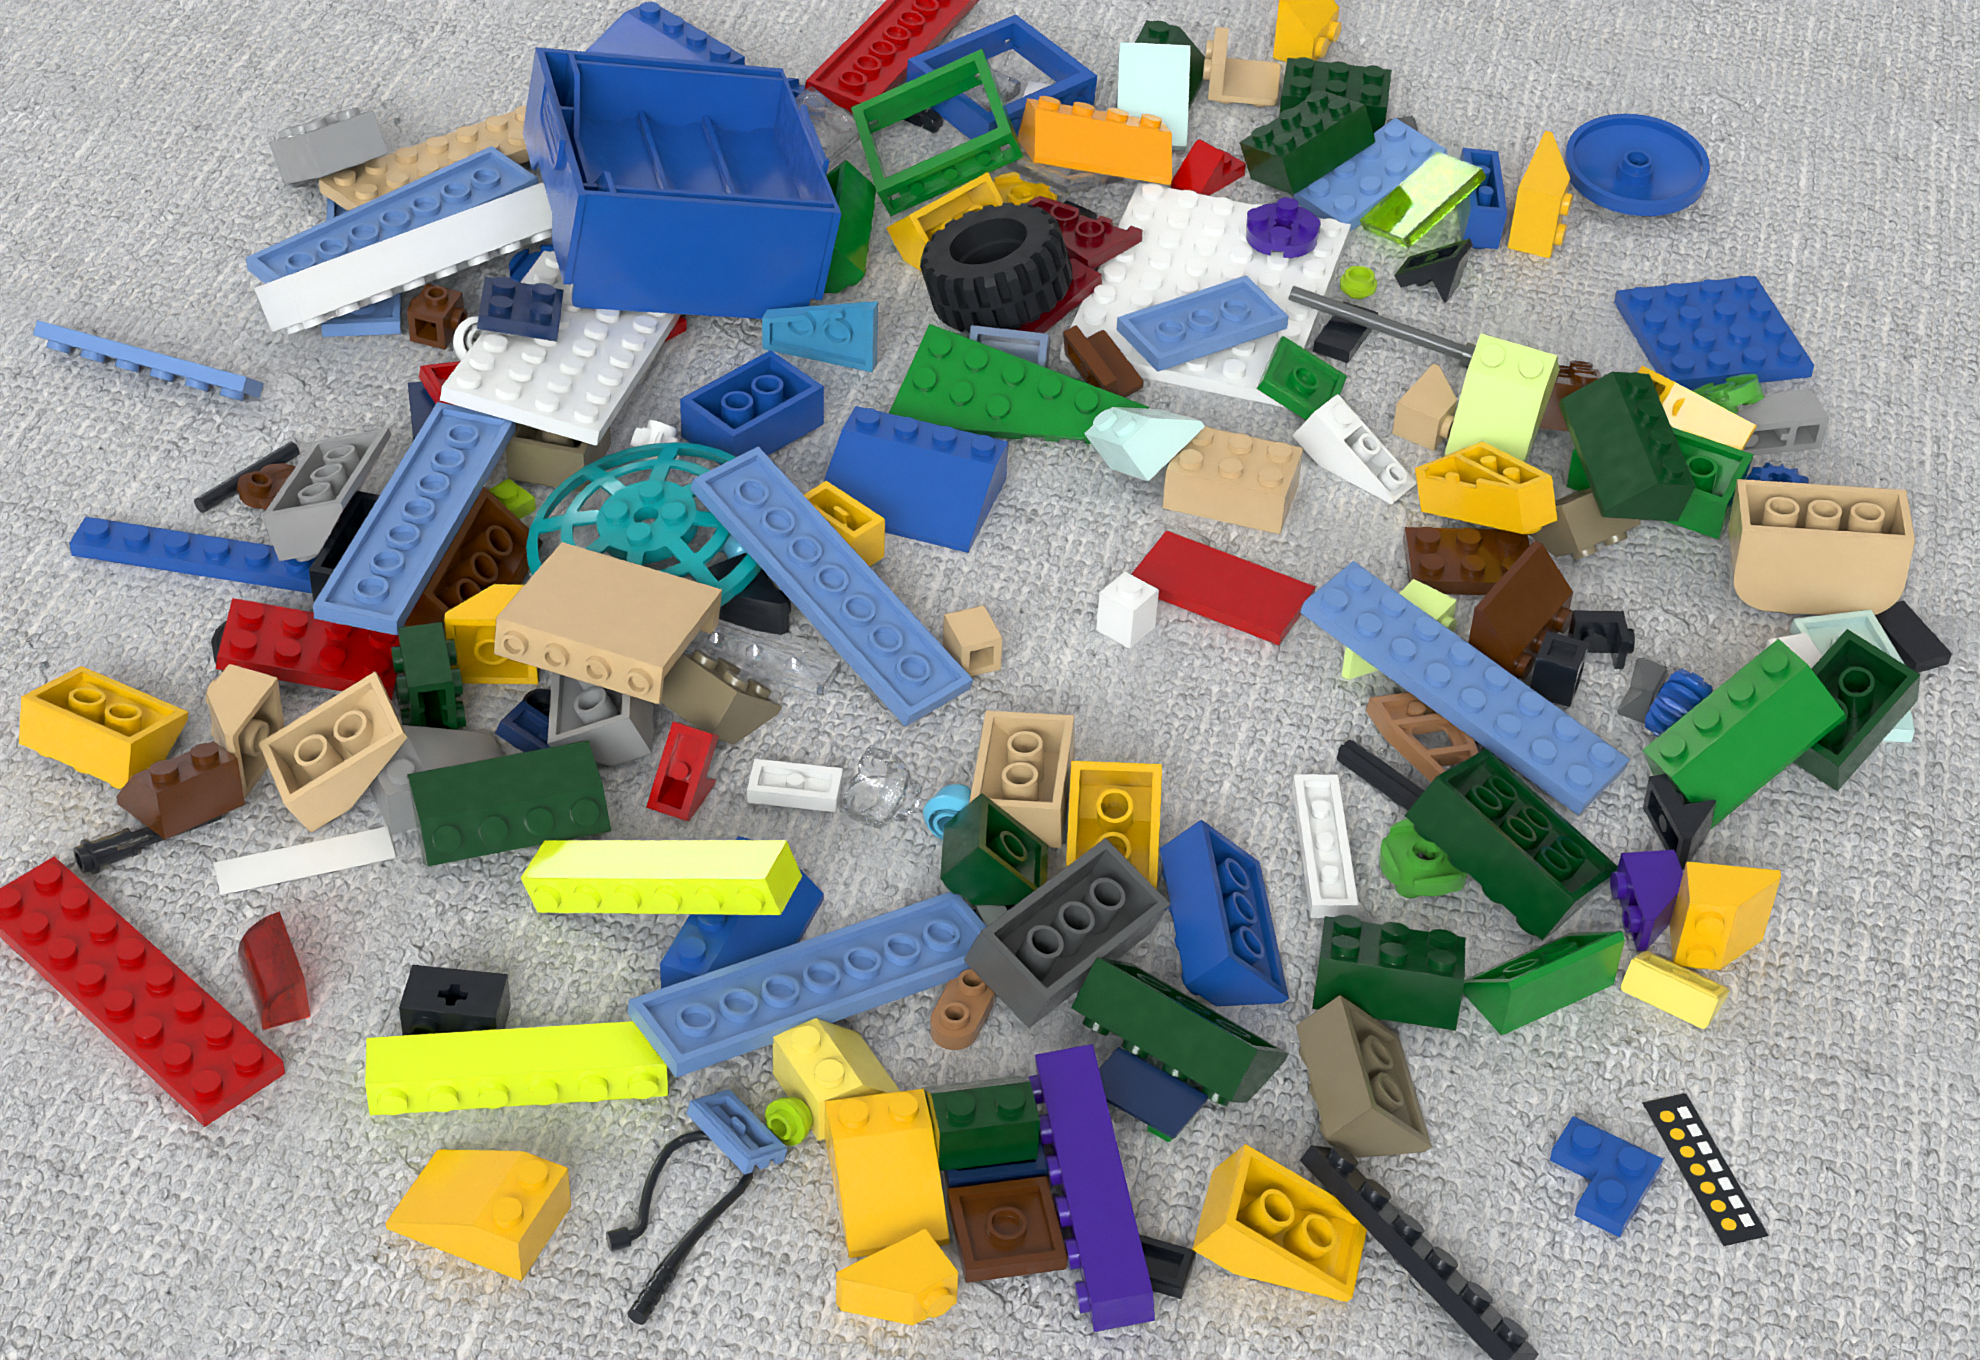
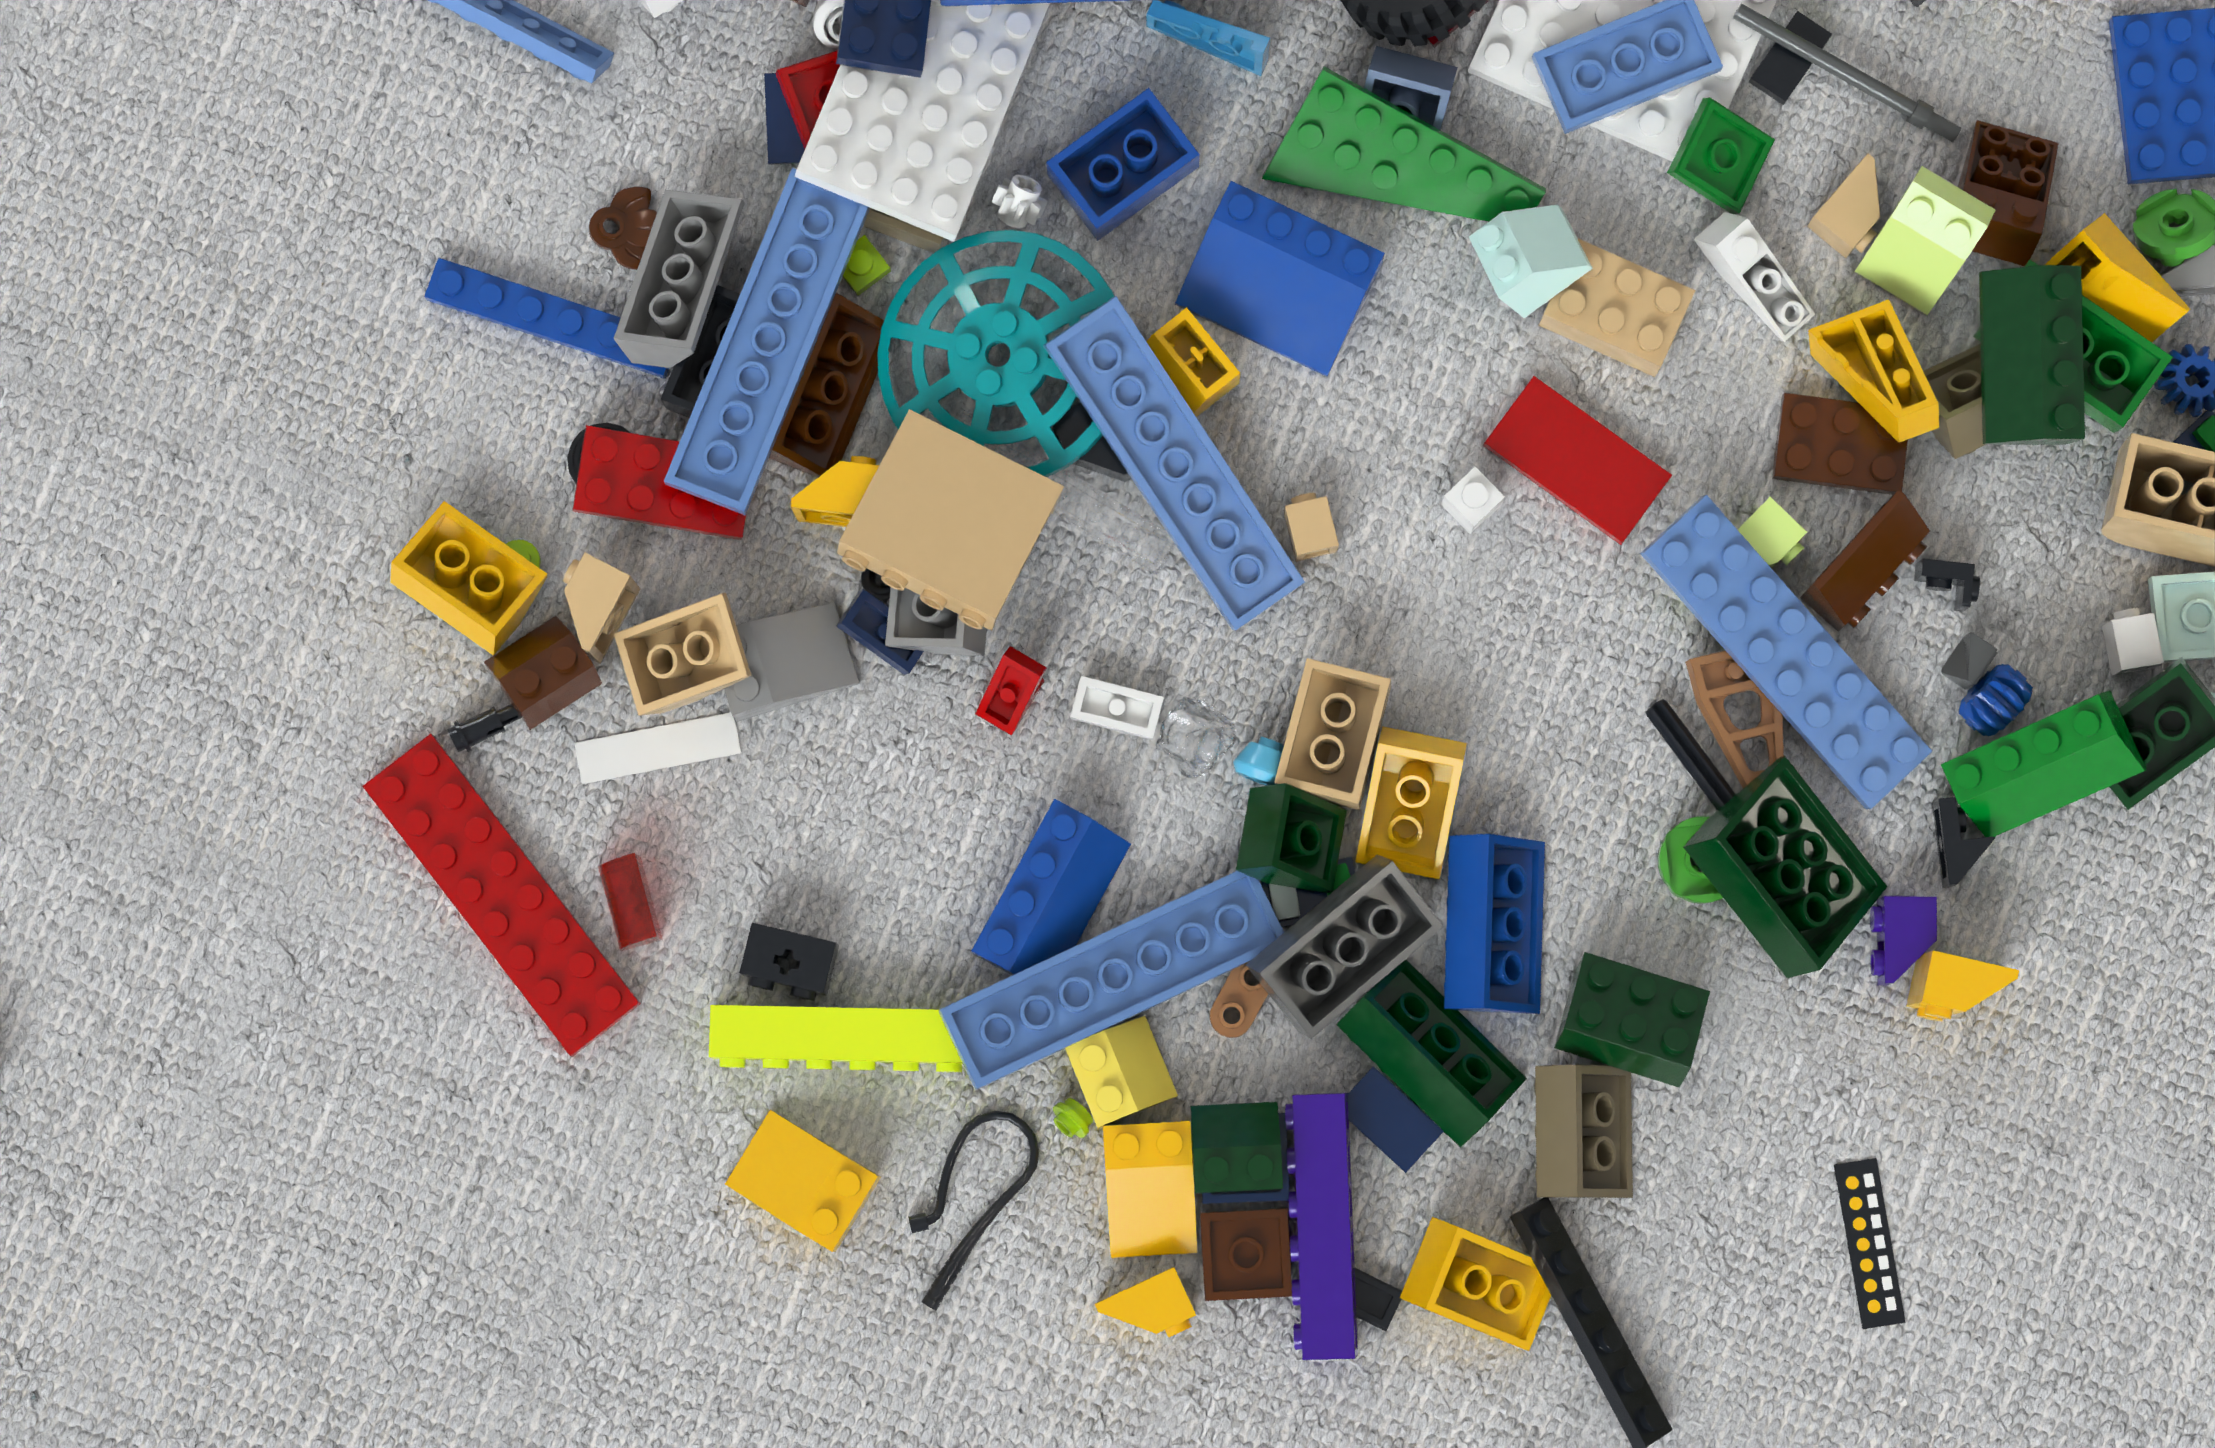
camera: 15 degrees right, 40 degrees up
(229, 487) = (598, 200): black bar -> none
(427, 678) = (774, 548): dark green brick -> none
(508, 803) = (844, 732): dark green slope -> none
(662, 876) = (978, 857): neon yellow brick -> none
(716, 698) = (1056, 587): dark tan slope -> none
(726, 1121) = (1014, 1132): medium blue tile -> none
(1101, 362) = (1509, 109): reddish brown panel -> none
(1324, 846) = (1608, 835): white plate -> none
(1545, 978) = (1774, 1018): green slope -> none
(1559, 668) = (1889, 634): black brick -> none
(1617, 1173) = (1791, 1243): blue plate -> none
(1674, 989) = (1899, 1038): light yellow slope -> none

